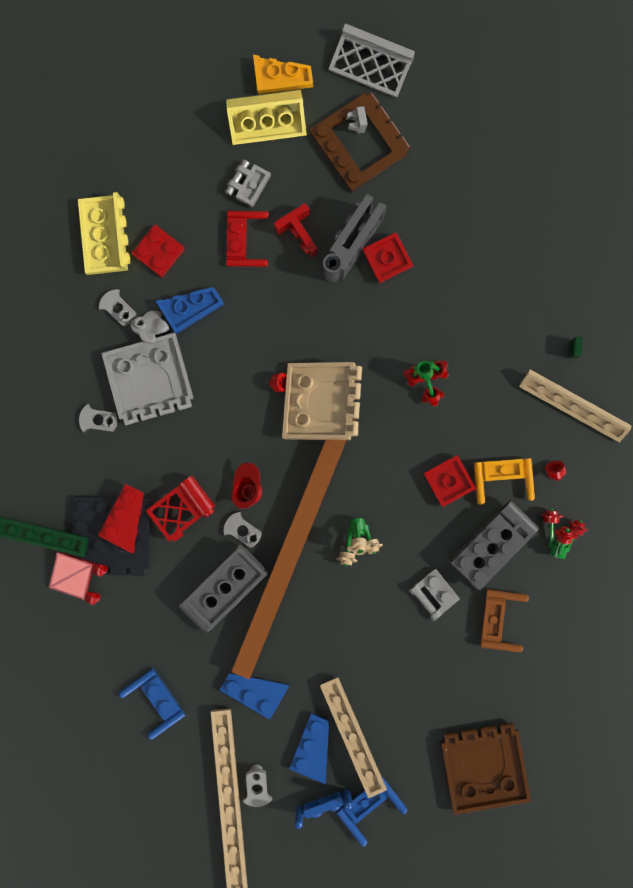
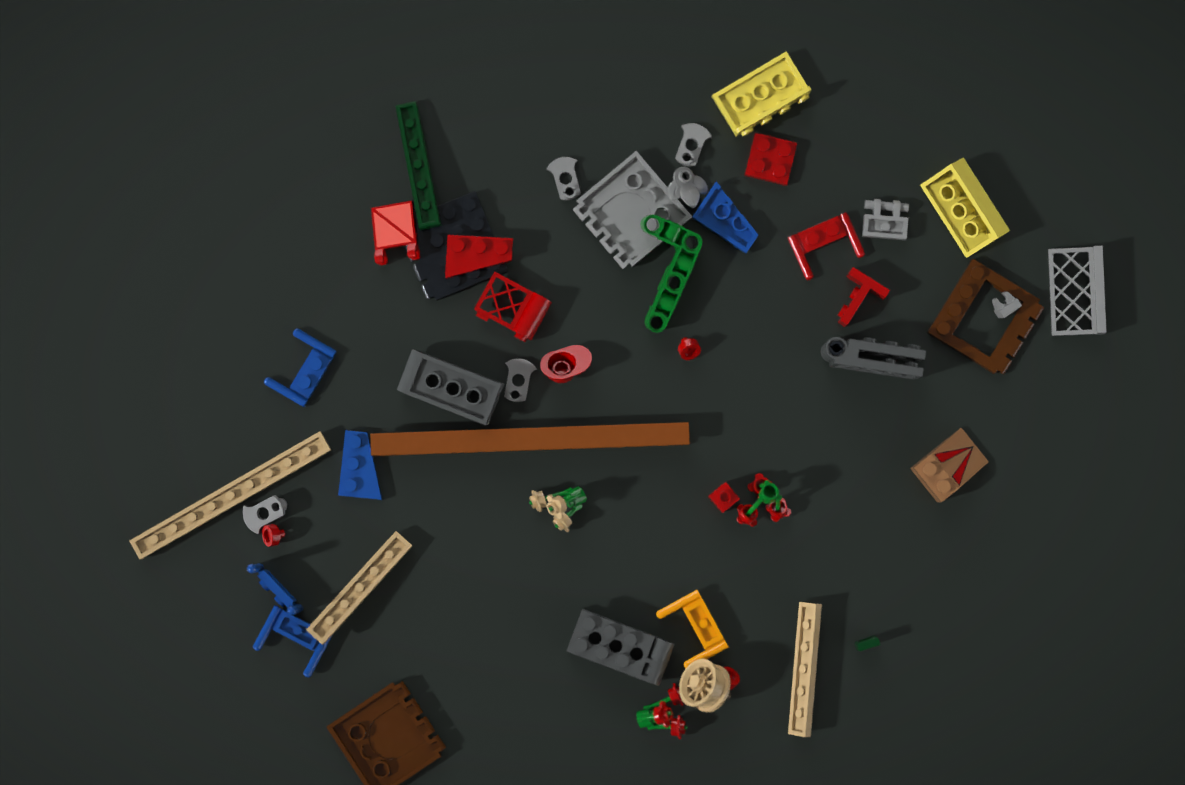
camera: 65 degrees right, 0 degrees up
(210, 359) = (680, 267): none -> green beam
(277, 789) = (271, 535): none -> red tile
(281, 76) = (1016, 201): light orange wing -> none
(311, 752) = (327, 552): blue wing -> none
(321, 401) = (689, 401): tan hinge -> none
(387, 257) = (872, 402): red plate -> none
(410, 408) = (723, 497): none -> red brick
(439, 590) = (548, 611): light grey plate -> none
(449, 481) = (666, 572): red plate -> none
(464, 221) = (949, 465): none -> medium nougat slope
(494, 617) = (544, 681): dark orange plate -> none
(555, 491) = (704, 685): none -> tan wheel

